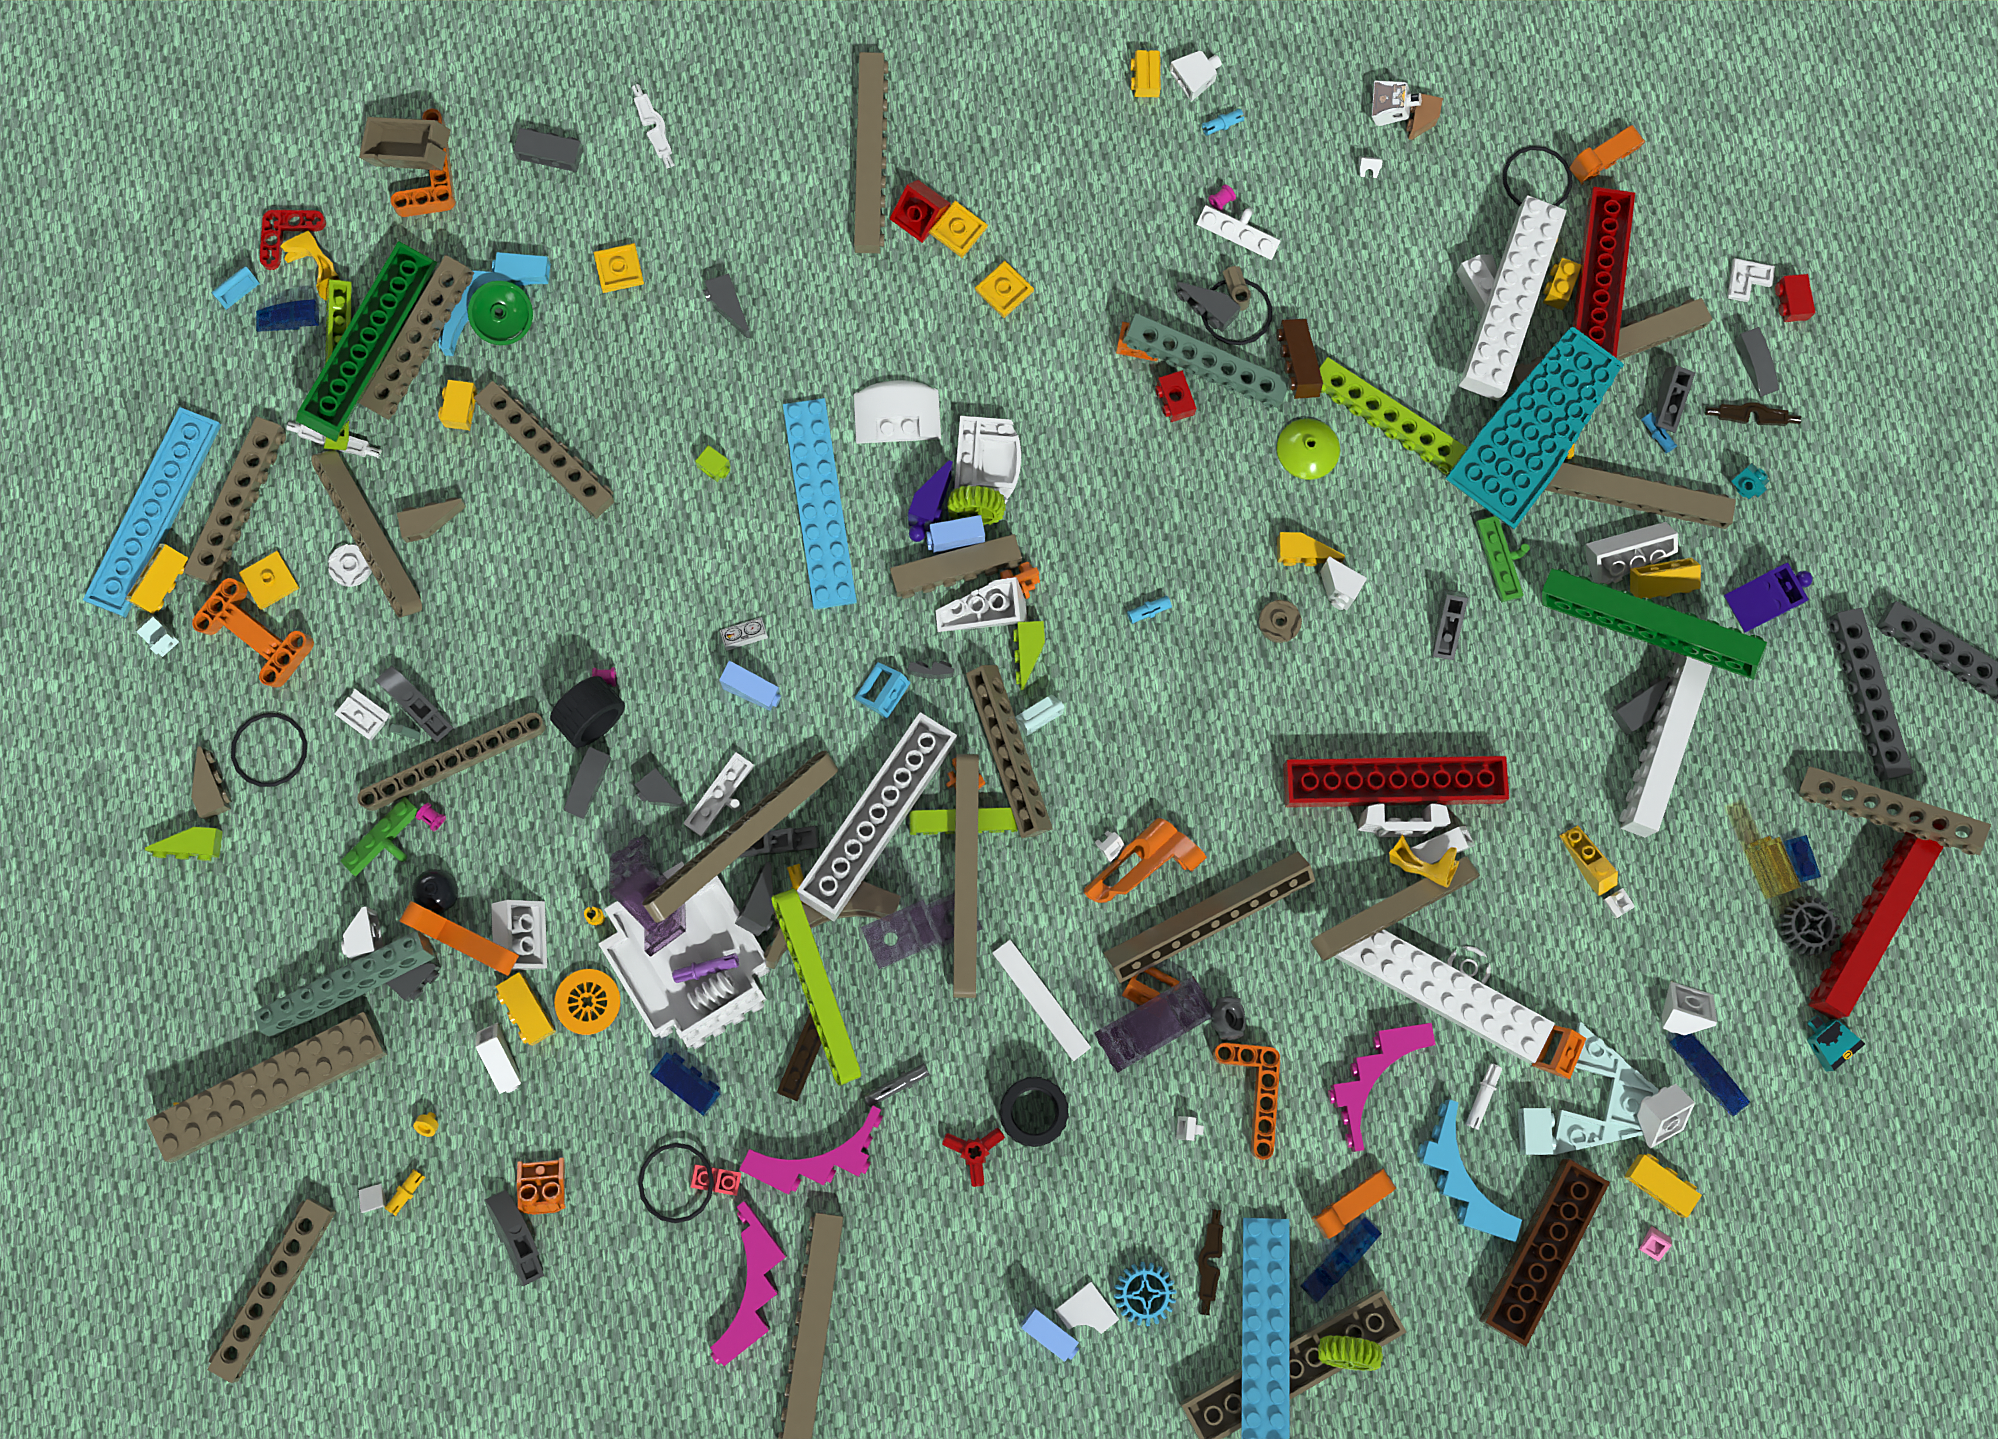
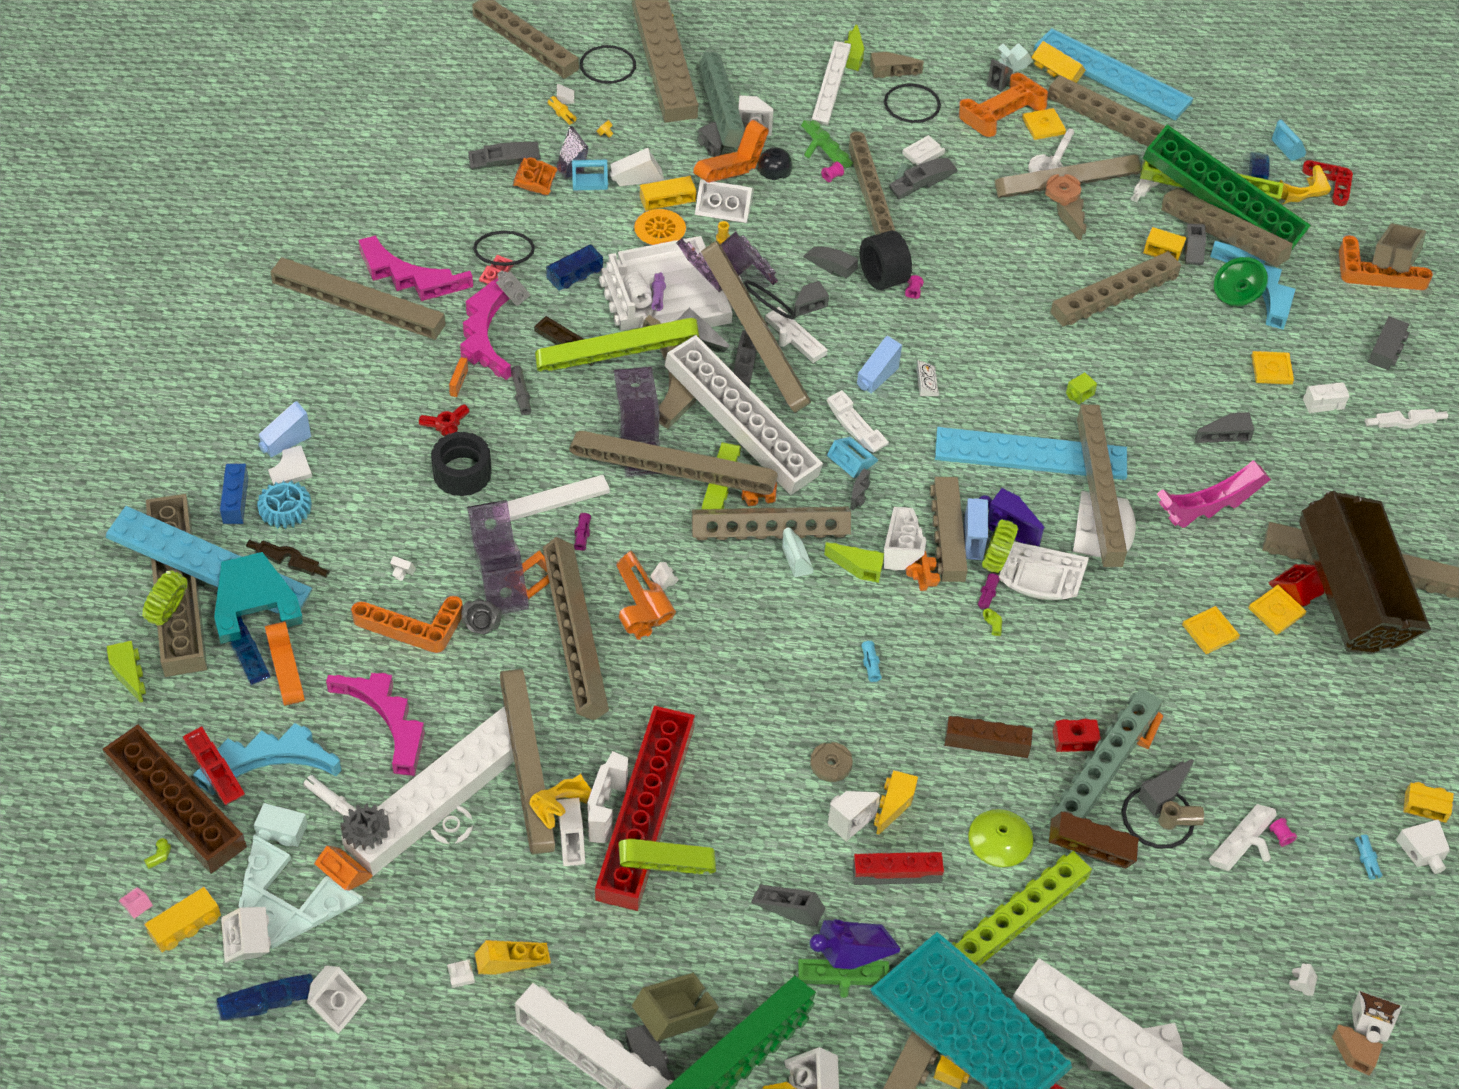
camera: 110 degrees right, 25 degrees down
(198, 646) = (999, 75): none -> dark grey slope
(261, 1144) = (607, 82): none -> black piece
(266, 855) = (831, 82): none -> white tile
(313, 546) = (1061, 149): none -> white piece
(401, 518) = (1060, 195): none -> nougat plate
(447, 368) = (1195, 244): none -> dark grey slope
(496, 1148) = (573, 149): none -> slope
(524, 1114) = (590, 181): none -> medium azure tile
(652, 207) = (1326, 397): none -> white brick
(702, 845) = (766, 303): none -> black piece
(750, 1145) = (512, 287): none -> light grey hinge
(837, 694) = (854, 424): none -> white slope
(843, 310) = (1207, 502): none -> dark pink arch
(860, 416) = (1101, 486): none -> dark tan brick
(902, 1163) = (458, 377): none -> orange tile
(919, 140) = (1363, 572): none -> dark brown panel
(1024, 512) = (988, 591): none -> magenta axle
(1057, 500) = (994, 620): none -> lime arm
(1076, 951) = (582, 531): none -> magenta pin
(1150, 1356) = (234, 494): none -> blue brick
(1206, 476) = (988, 736): none -> reddish brown brick
(1291, 1273) = (248, 587): none -> teal wedge
(1380, 532) = (897, 868): none -> red piece
(1409, 1376) = (124, 666): none -> lime slope
(1455, 740) = (666, 856): none -> lime beam
(1475, 552) = (853, 943): none -> dark purple slope
(1505, 1222) = (213, 766): none -> red slope
(1523, 1029) = (356, 833): none -> dark grey gear
(1599, 1240) = (161, 854): none -> lime arm
(1600, 692) = (669, 1006): none -> olive piece

